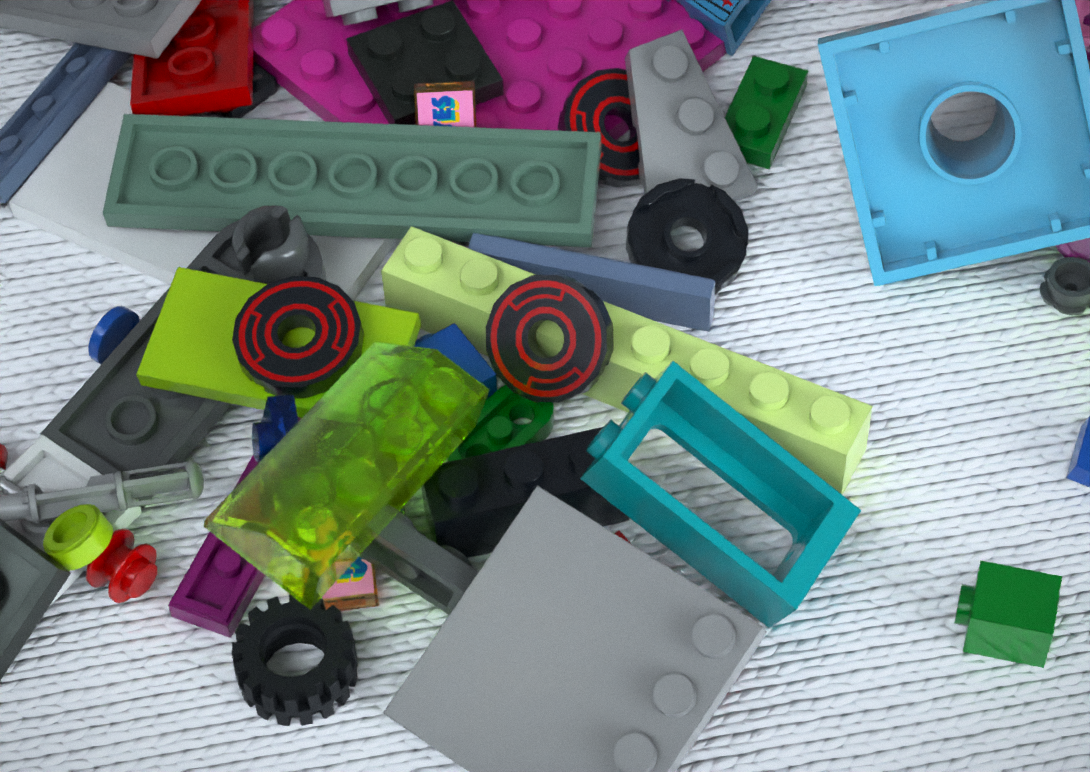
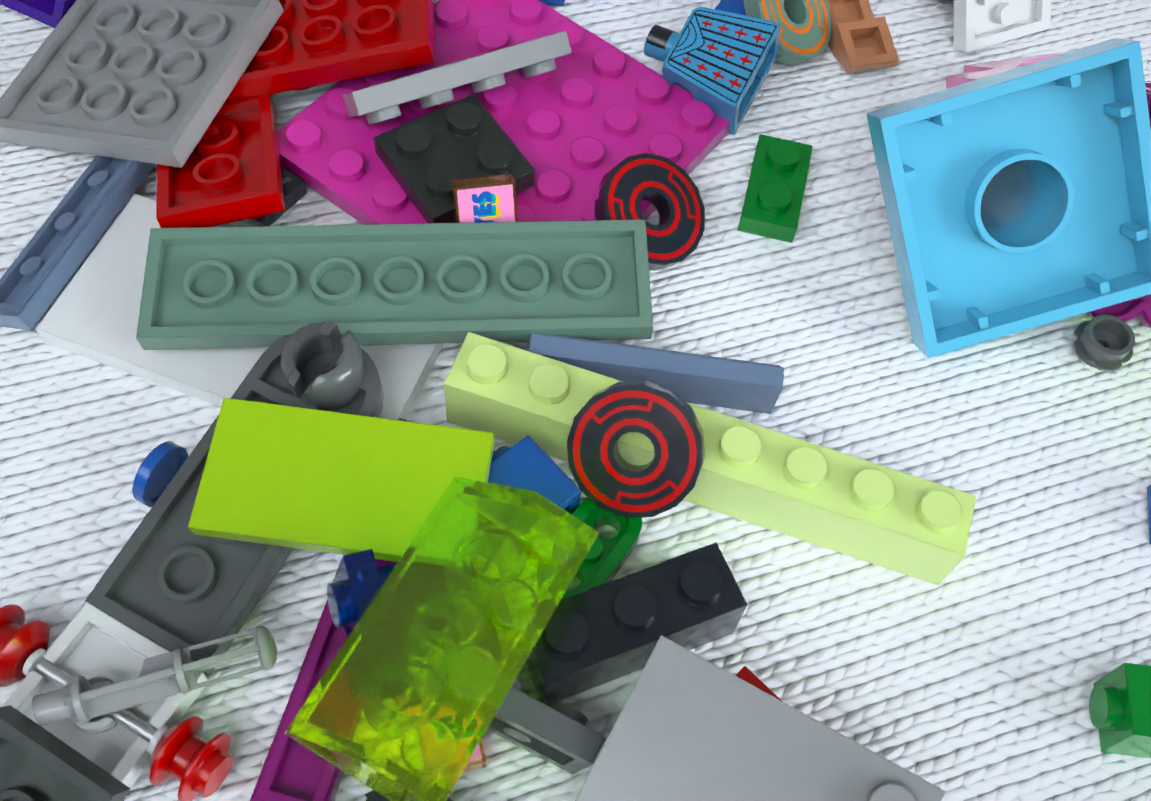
camera: 15 degrees left, 5 degrees up
(78, 536) = (135, 740): lime tile -> none
(292, 305) = (359, 434): black tile -> none
(680, 121) = (717, 219): light grey wing -> none
(693, 205) = (757, 294): black tile -> none
(748, 462) = (933, 618): teal piece -> none

